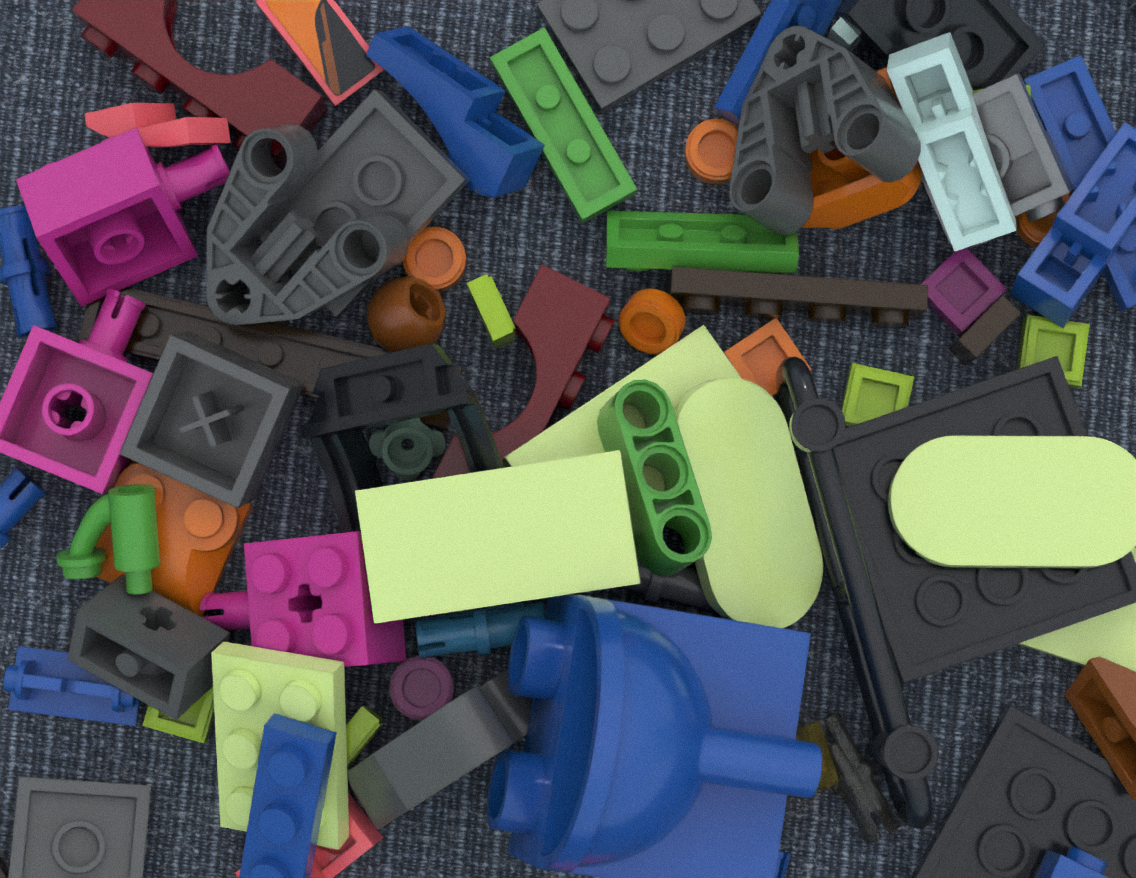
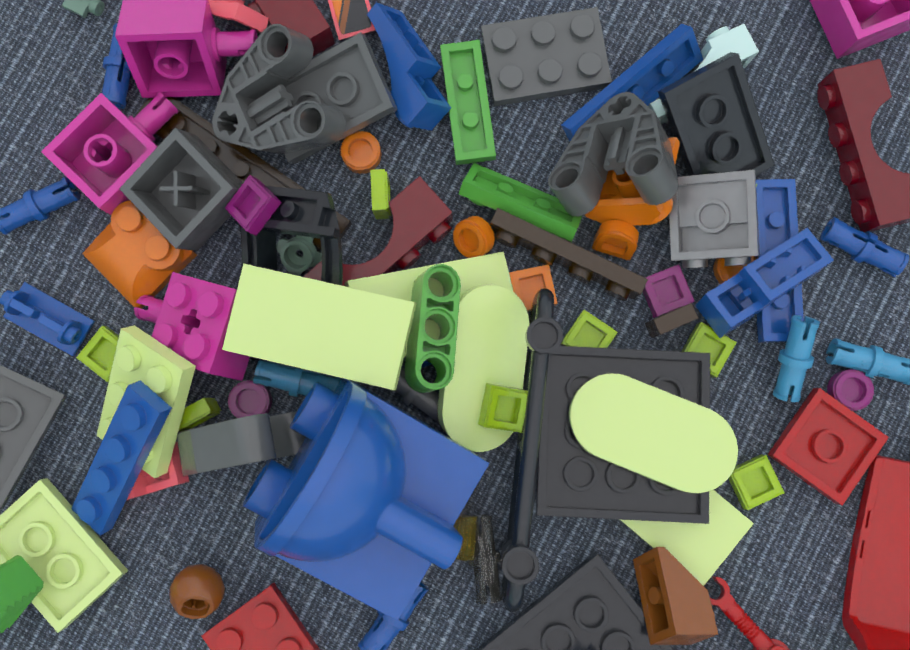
camera: 25 degrees right, 0 degrees up
(134, 538) = (109, 241): bright green plant -> none
(146, 647) = (90, 309): dark grey brick -> none
(325, 402) = (253, 205): none -> magenta tile
(405, 314) = (329, 174): dark orange piece -> none
(711, 151) = (549, 150): orange tile -> none
(795, 550) = (503, 408): none -> lime tile
(859, 243) = (616, 239): none -> orange tile
(953, 141) = (698, 197): light aqua slope -> none

